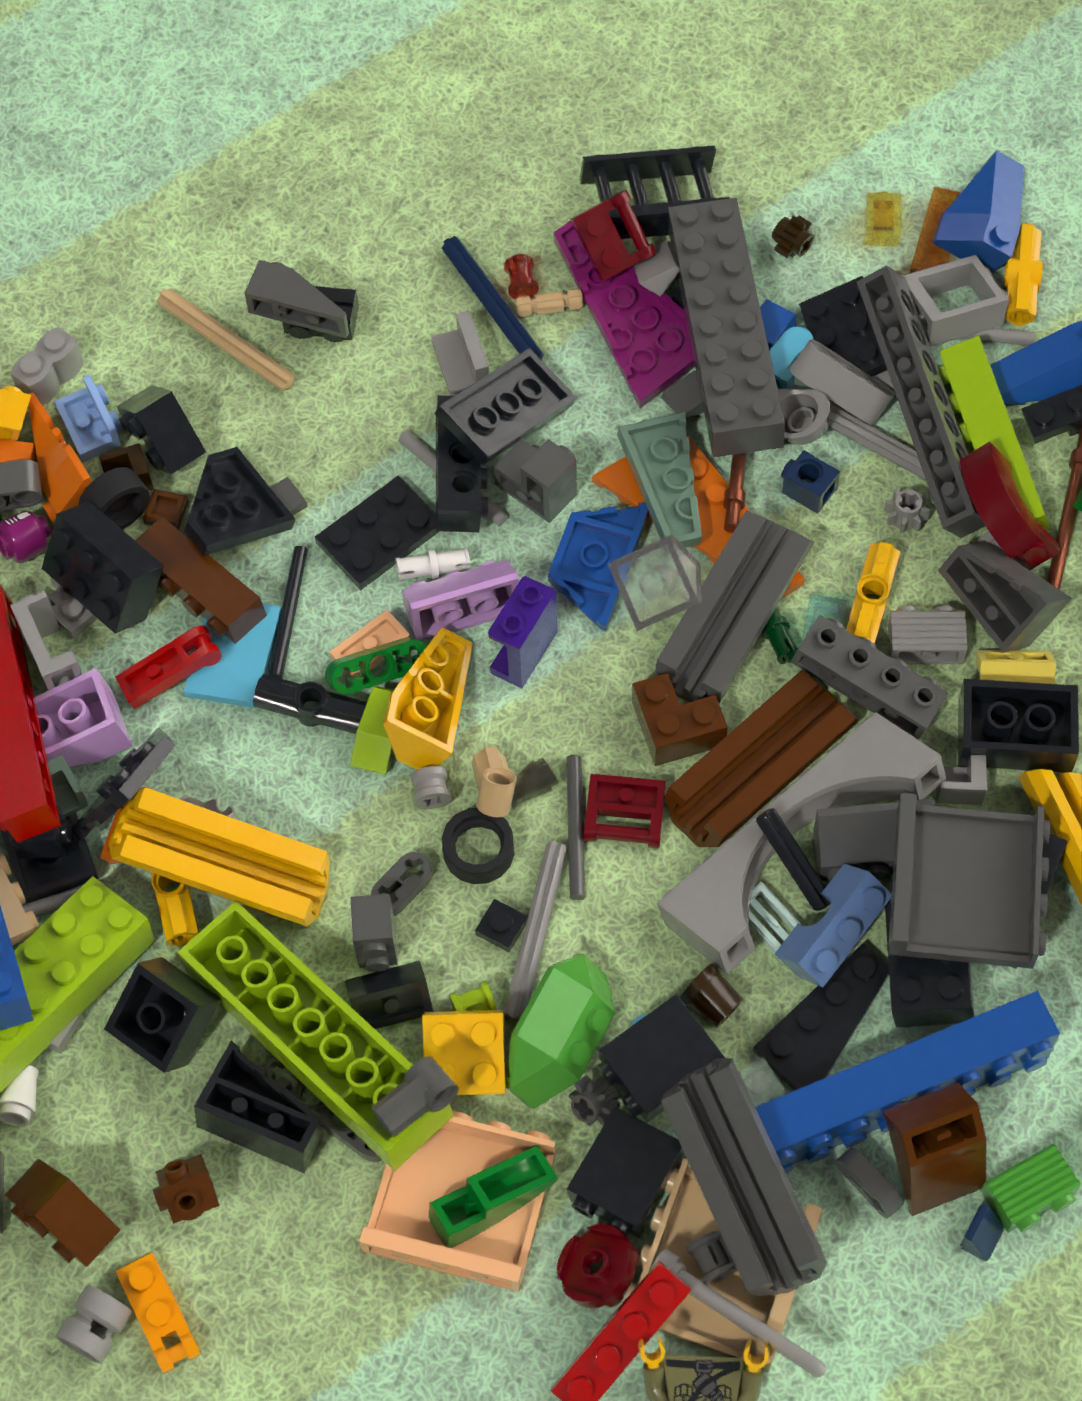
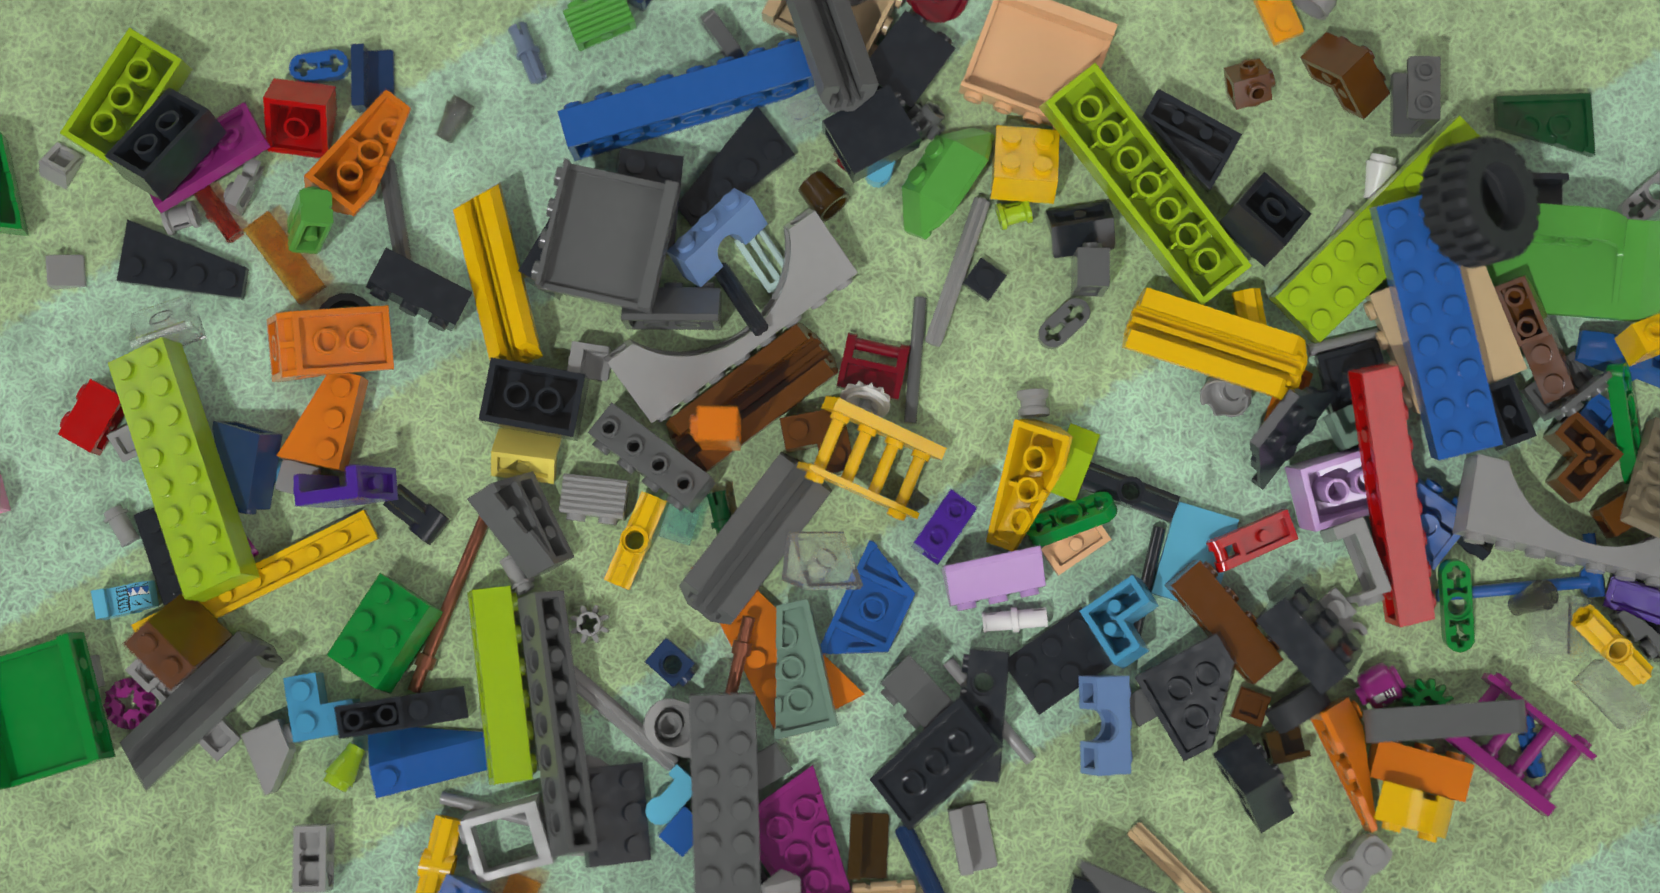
camera: 175 degrees left, 20 degrees up
(88, 420) = (1320, 804): light blue bracket -> none
(319, 566) = (1113, 618): none -> dark azure brick
(324, 488) = (1111, 749): none -> medium blue arch
(423, 1090) = (1067, 98): dark grey piece -> none
(477, 873) = (1009, 326): black tyre -> none
(491, 1196) = (1012, 52): green slope -> none
(493, 782) = (981, 398): tan piece -> none
(533, 782) = (947, 400): clear smoke cone -> none
(572, 340) = (868, 845): none -> dark brown panel
(622, 725) = (895, 439): none -> yellow fence
(629, 766) = (874, 398): none -> white gear
(797, 681) = (717, 428): none -> orange brick
(841, 382) = (628, 755): light grey beam -> none
(938, 1147) = (669, 46): reddish brown slope -> none
(1001, 508) = (512, 601): dark red arch -> none

